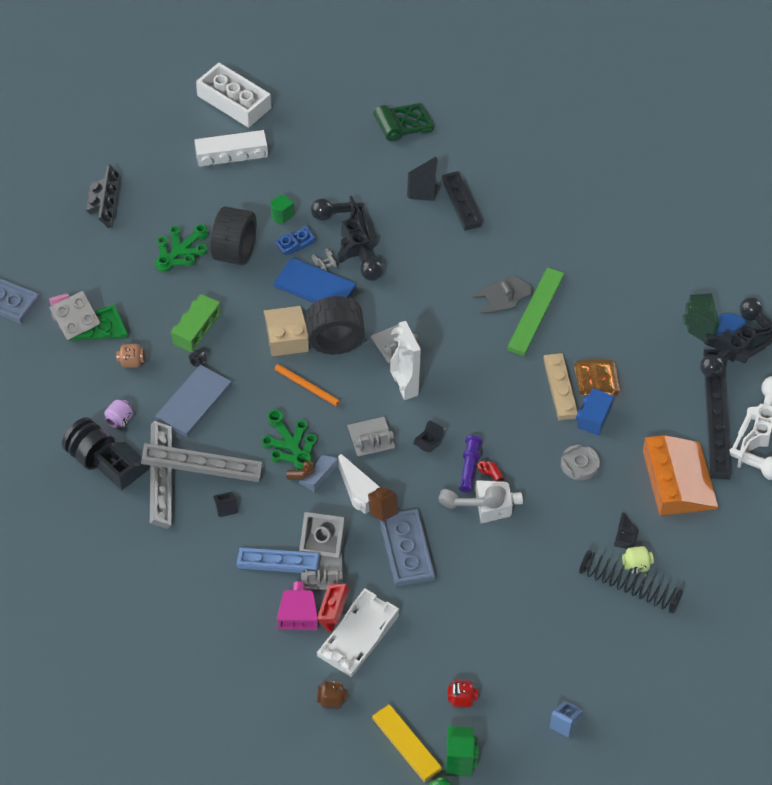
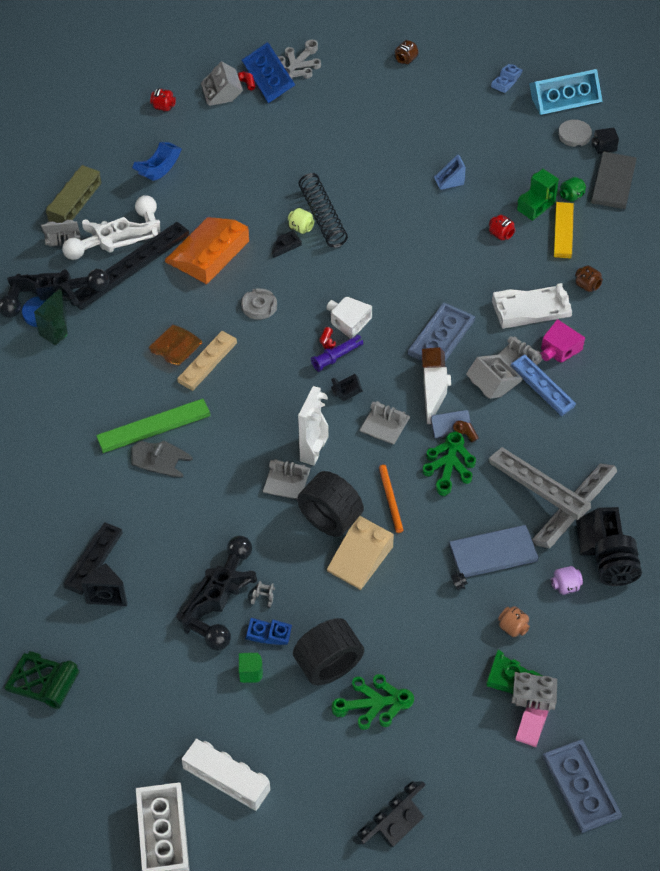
camera: 135 degrees left, 0 degrees up
(196, 323) = (430, 613): bright green brick -> none
(225, 504) = (542, 454): black slope -> none
(312, 282) = (295, 578): blue tile -> none
(332, 605) = (537, 320): red panel -> none
(493, 498) = (356, 301): light grey piece -> none
(595, 411) = (209, 321): blue brick -> none

